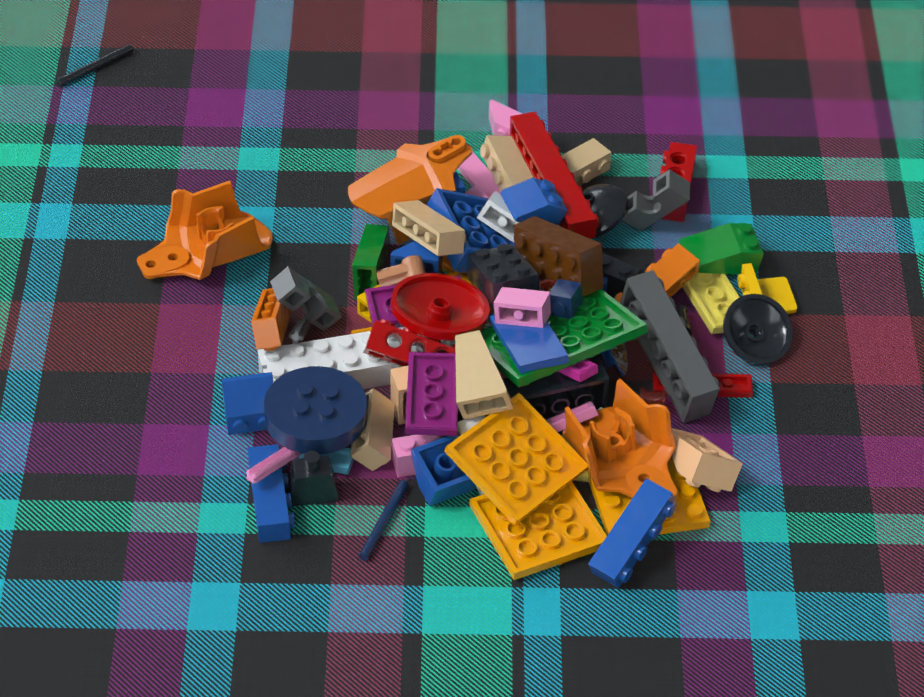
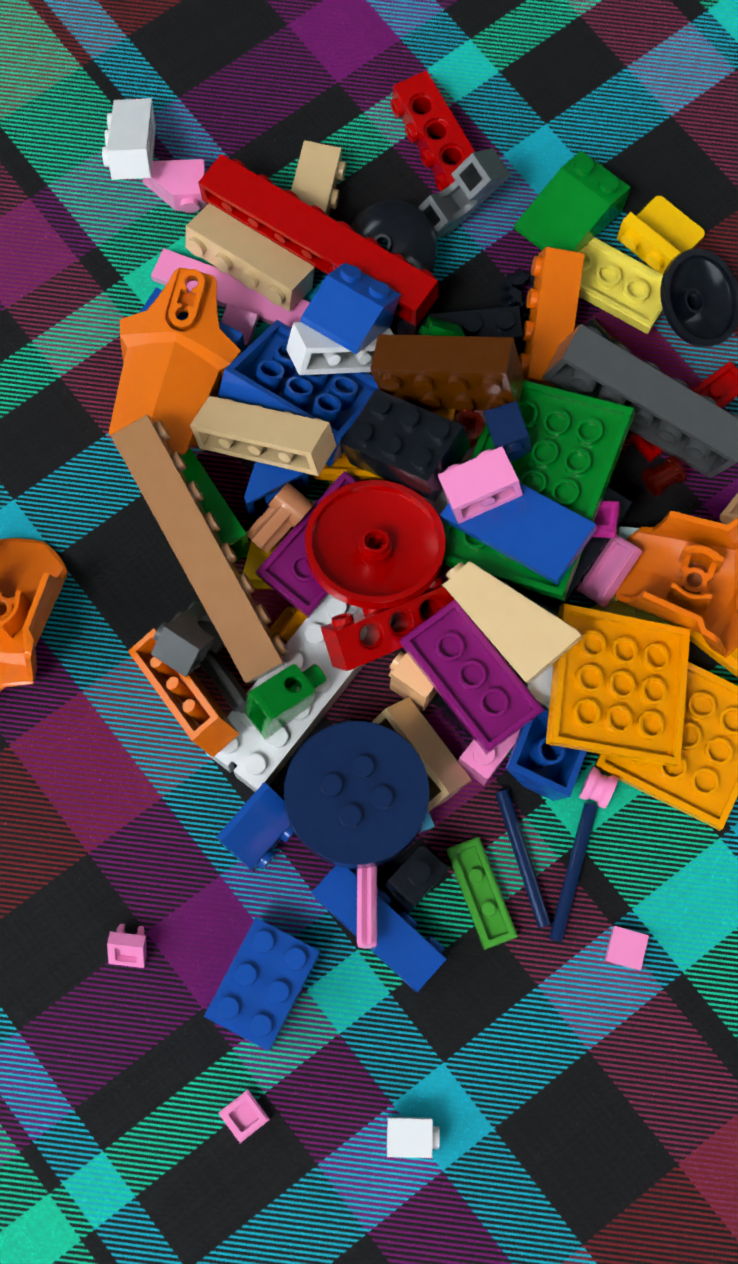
camera: 40 degrees left, 30 degrees up
(107, 531) = (244, 1116): none -> bright pink tile
(126, 417) = (127, 948): none -> bright pink tile
(179, 475) = (262, 984): none -> blue brick
(184, 593) = (411, 1137): none -> white brick
(319, 341) = (282, 698): none -> green torso
(342, 255) = (199, 549): none -> medium nougat brick
(343, 520) = (481, 893): none -> bright green tile
(399, 597) = (626, 948): none -> bright pink tile
(405, 544) = (573, 872): none -> dark blue bar
(461, 511) = (598, 787): none -> bright pink wheel
(496, 86) = (130, 139): none -> white brick

